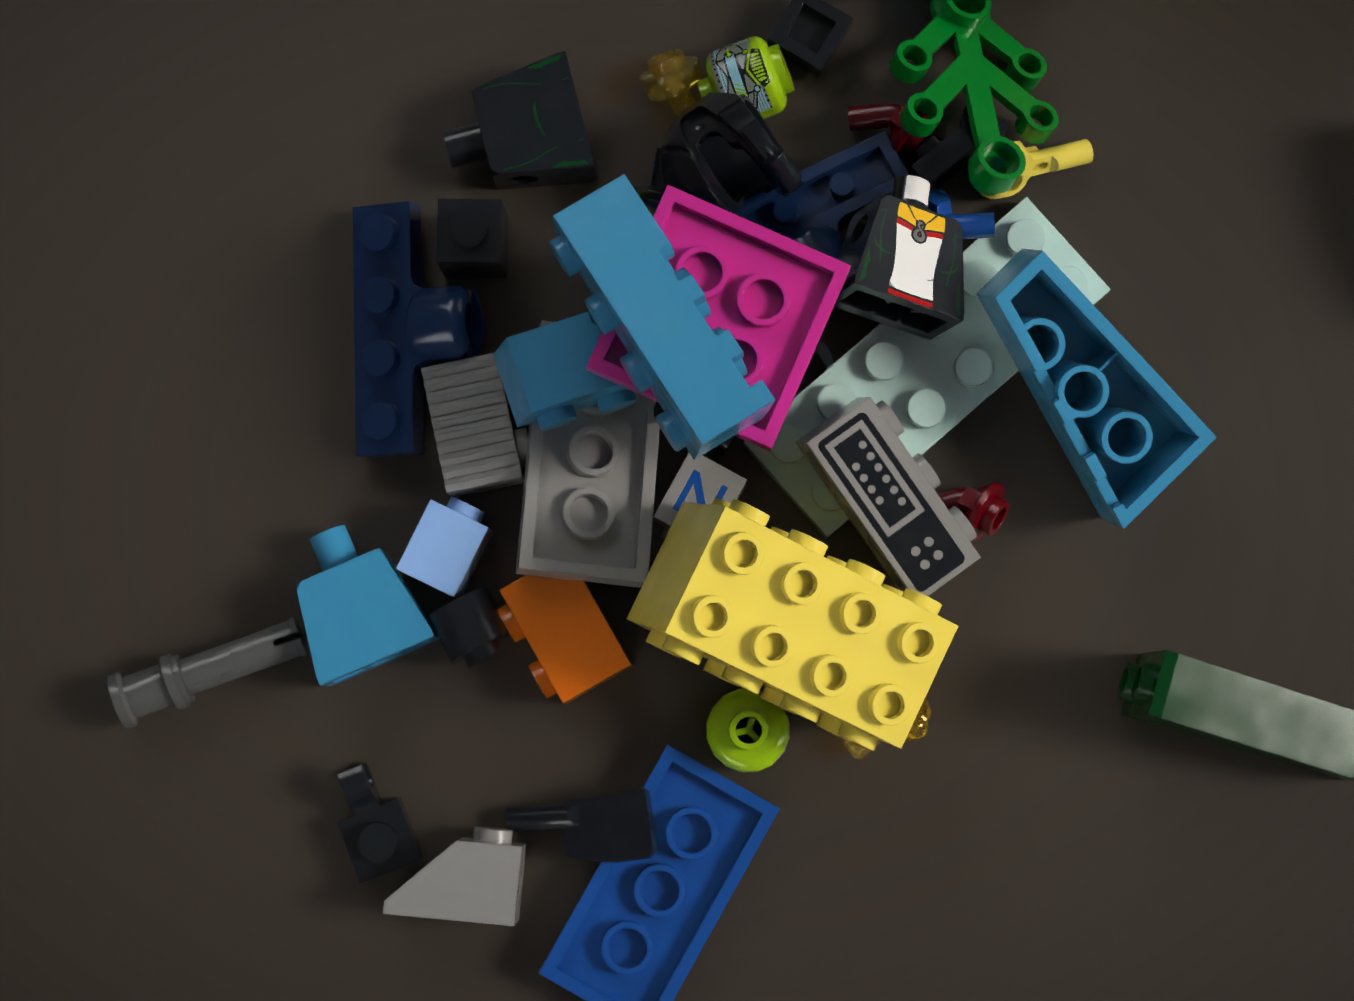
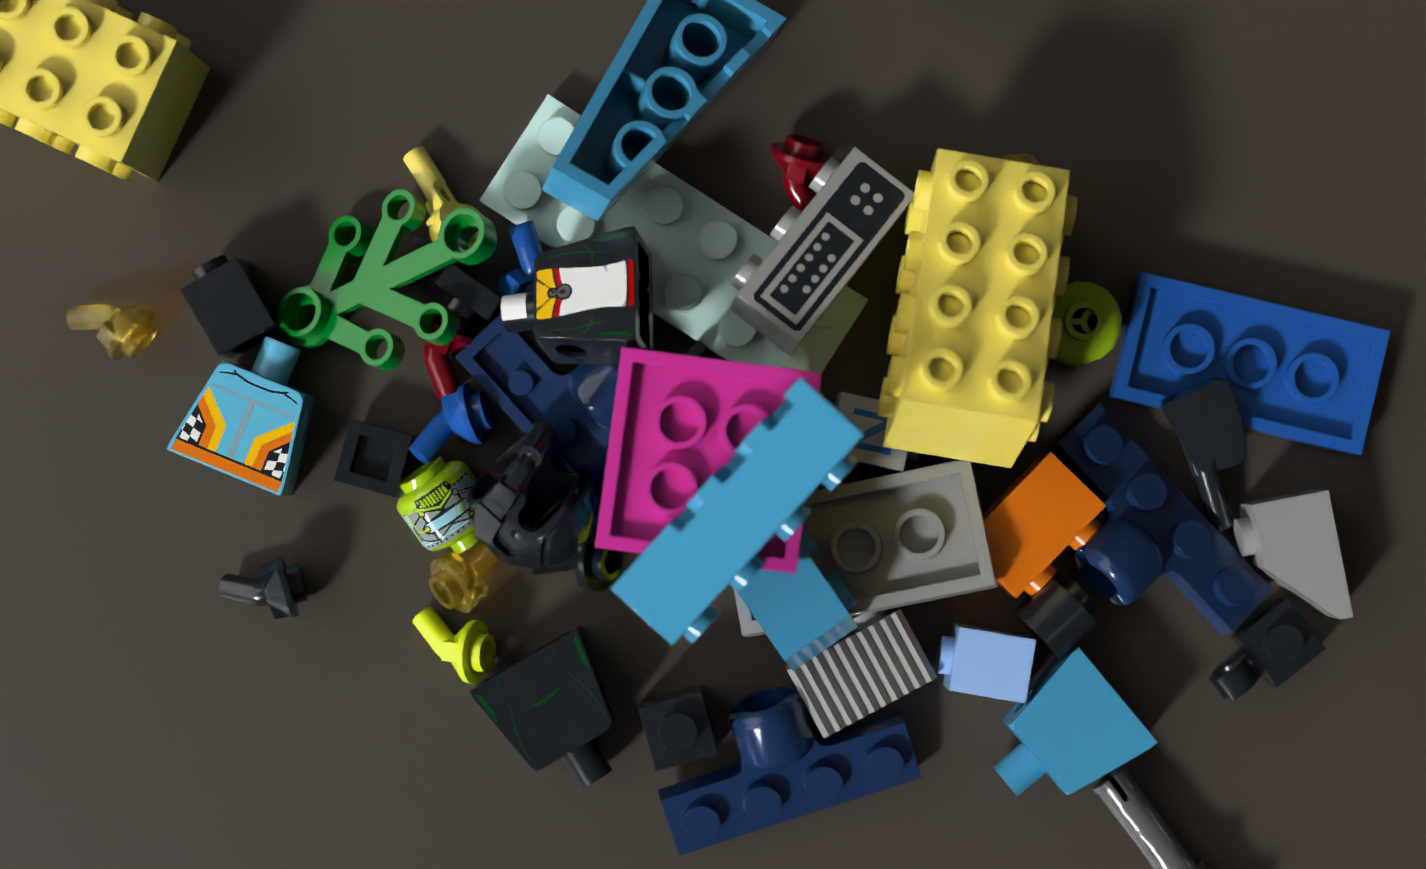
camera: 110 degrees left, 5 degrees up
(526, 746) = (1152, 529): none -> dark blue plate
(603, 67) = (469, 651): none -> neon yellow plate
(829, 123) = (462, 413): none -> blue plate

